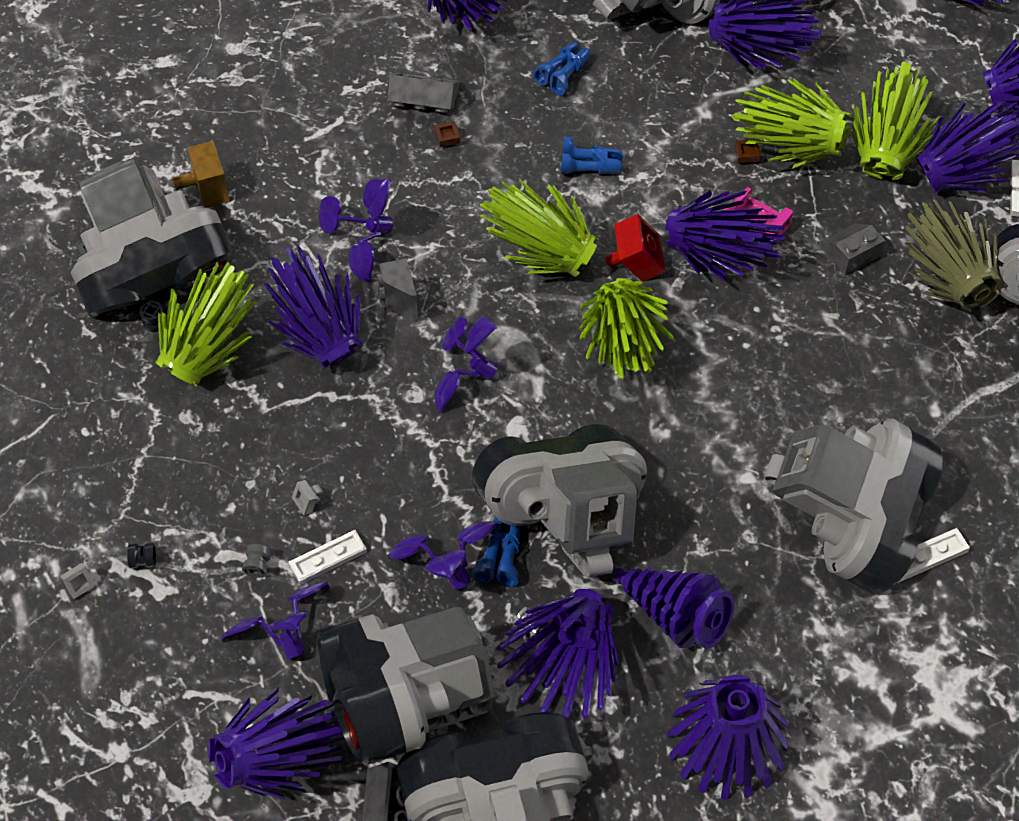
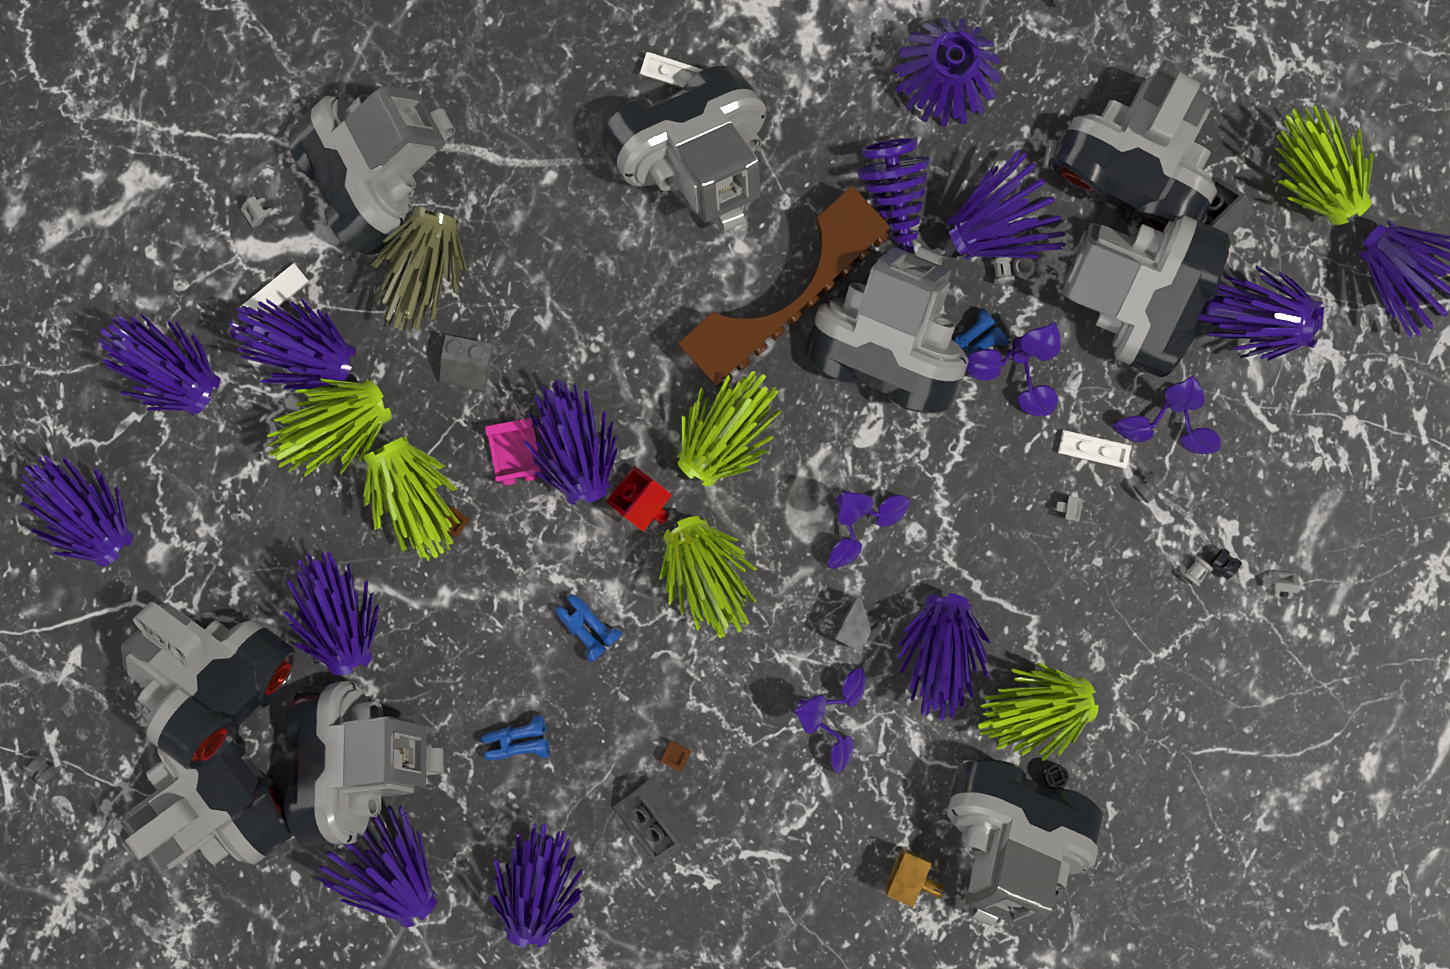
camera: 135 degrees left, 30 degrees up
(160, 532) = (1197, 571): none -> light grey bush
(686, 393) = (846, 236): none -> reddish brown arch

